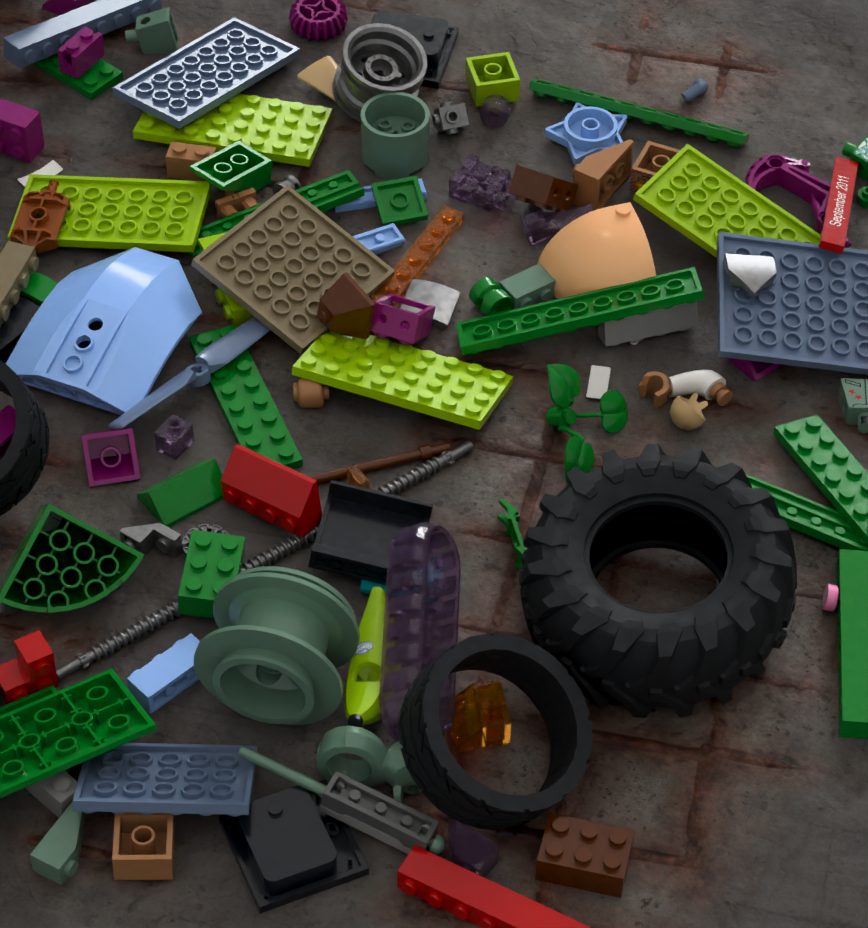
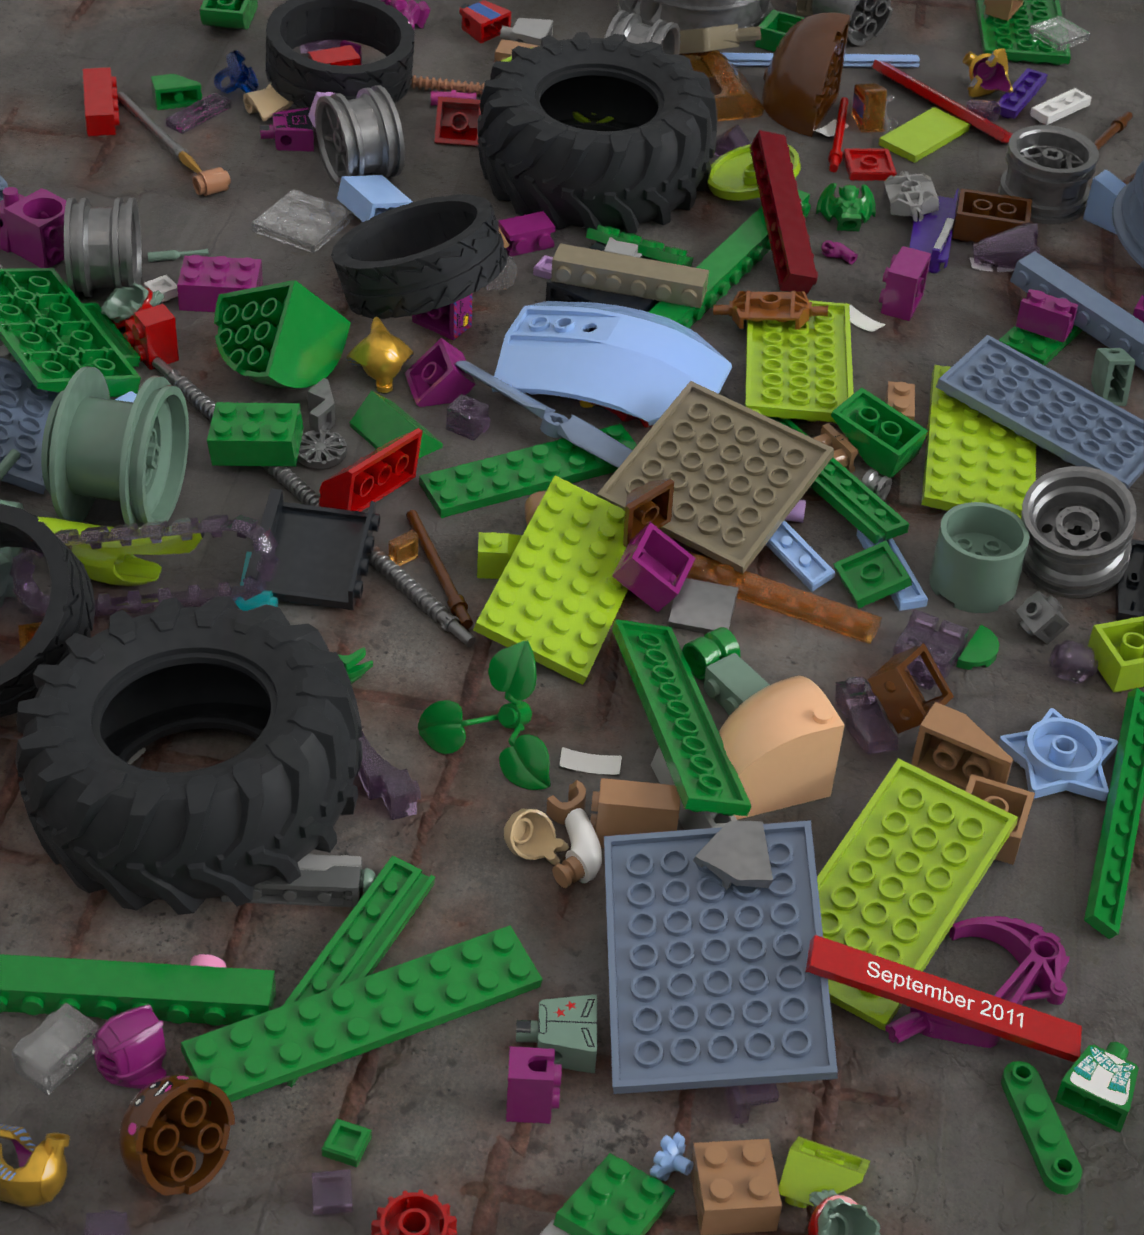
camera: 85 degrees right, 5 degrees down
(85, 487) = (380, 355): none -> pearl gold piece
(359, 422) = (495, 553): none -> lime slope
(462, 155) = (980, 650): none -> green tile
(675, 341) = (634, 808): none -> medium nougat brick

